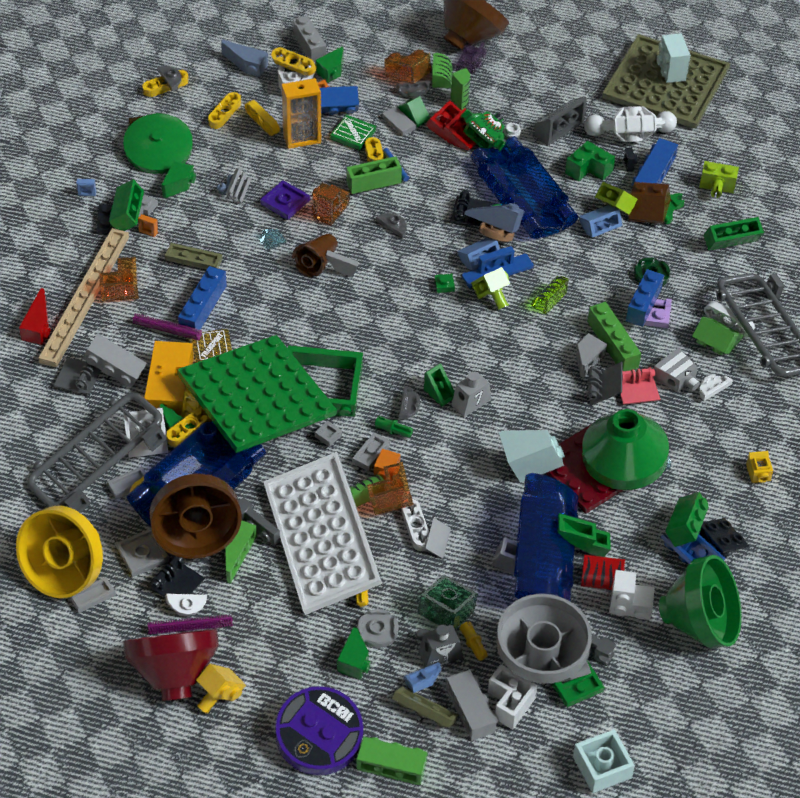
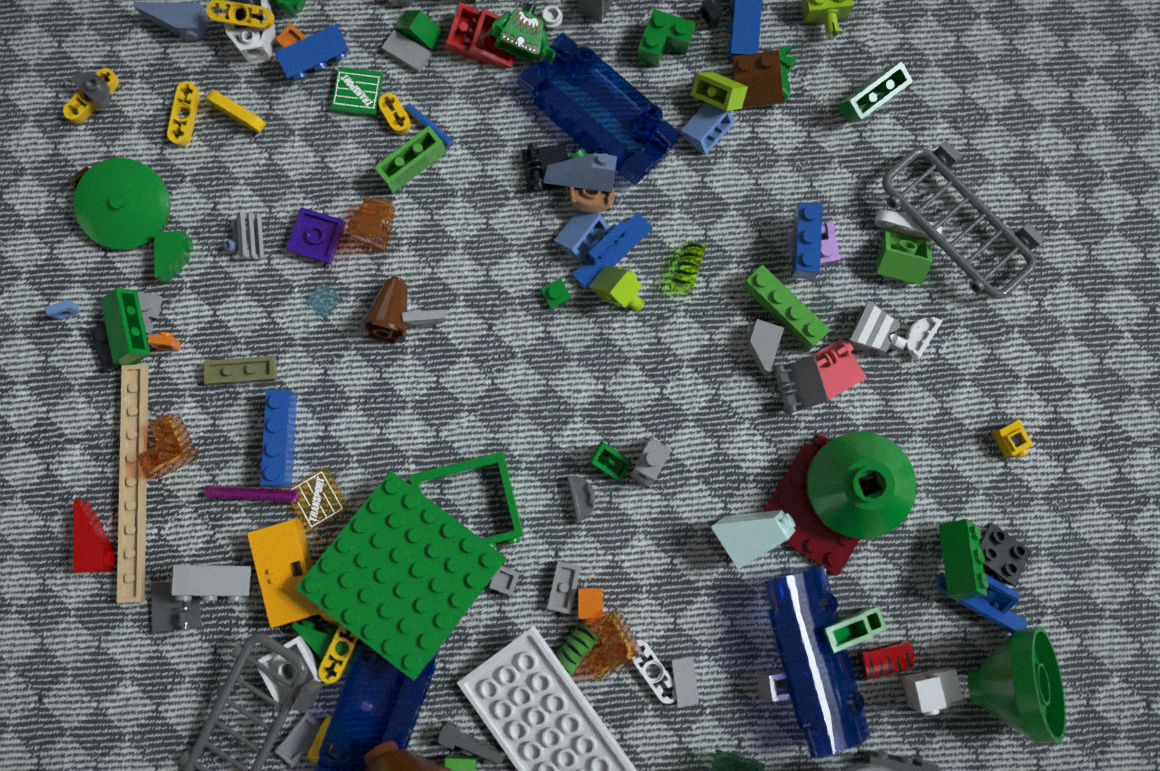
camera: 15 degrees left, 30 degrees up
(301, 113) = (284, 103): brick -> none
(393, 222) = (461, 221): flat silver plate -> none
(393, 427) = (577, 540): green axle -> none
(653, 265) = (799, 172): dark green tile -> none

